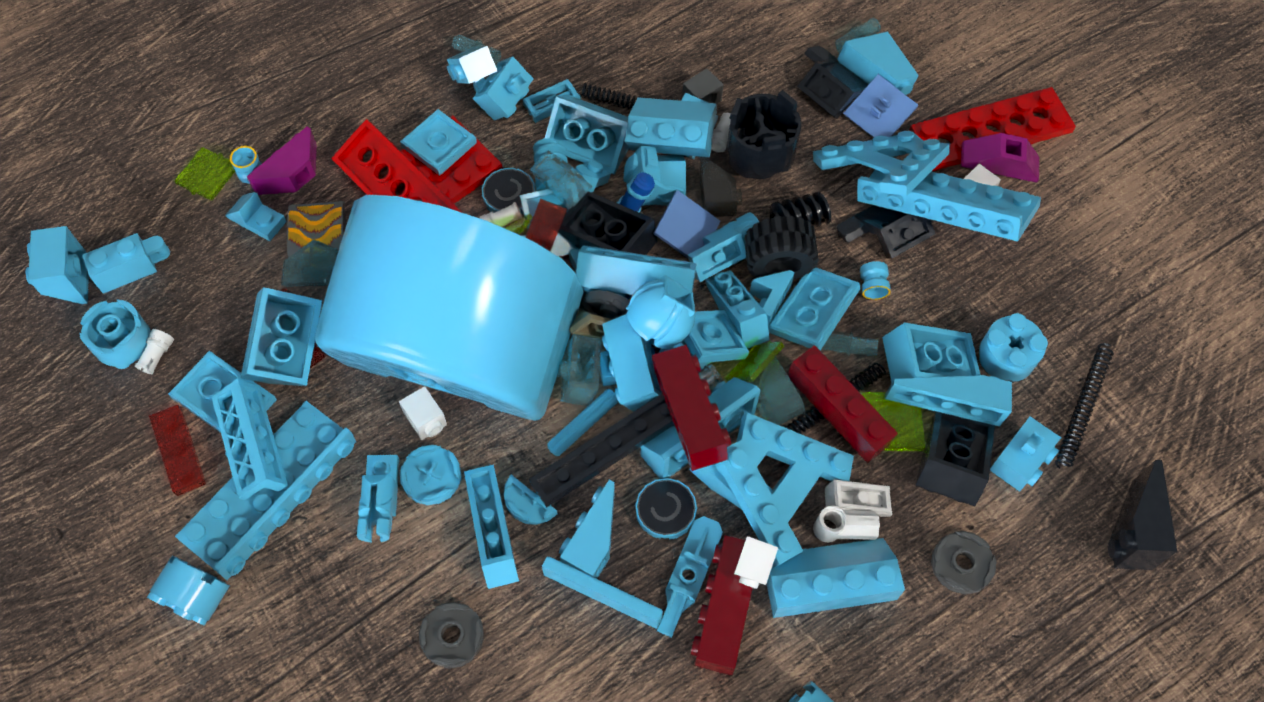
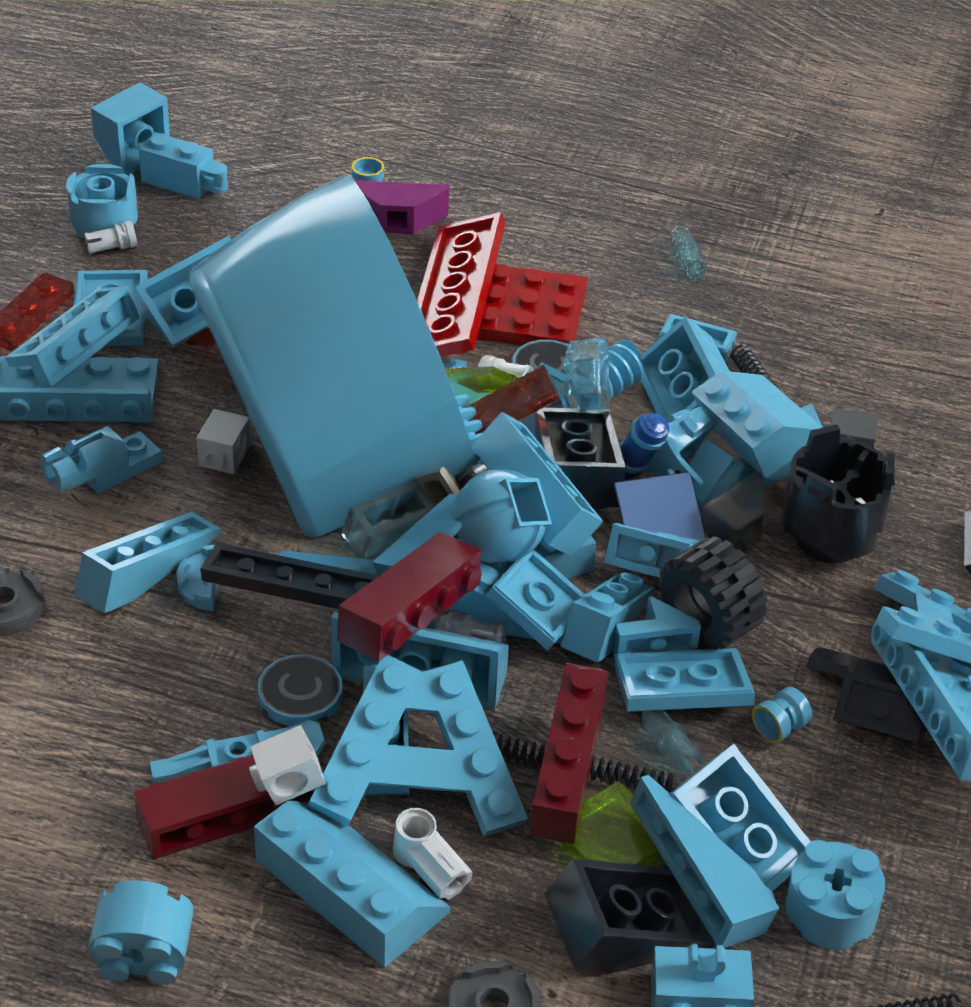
camera: 50 degrees right, 20 degrees down
(206, 174) = (328, 165): clear neon green piece -> none
(430, 475) = (164, 490): medium azure tile -> none
(438, 142) = (539, 279): medium azure tile -> none
(471, 66) = (653, 249): brick -> none
(503, 89) = (659, 288): medium azure brick -> none
(591, 543) = (208, 643): medium azure slope -> none
(593, 173) = (630, 404): medium azure plate -> none
(602, 592) = (149, 685): medium azure tile -> none
(756, 361) = (548, 657): clear neon green piece -> none
(778, 395) = (526, 701): clear light blue slope -> none
(807, 207) = (794, 602): black piece -> none
(859, 497) = (490, 865): white slope -> none

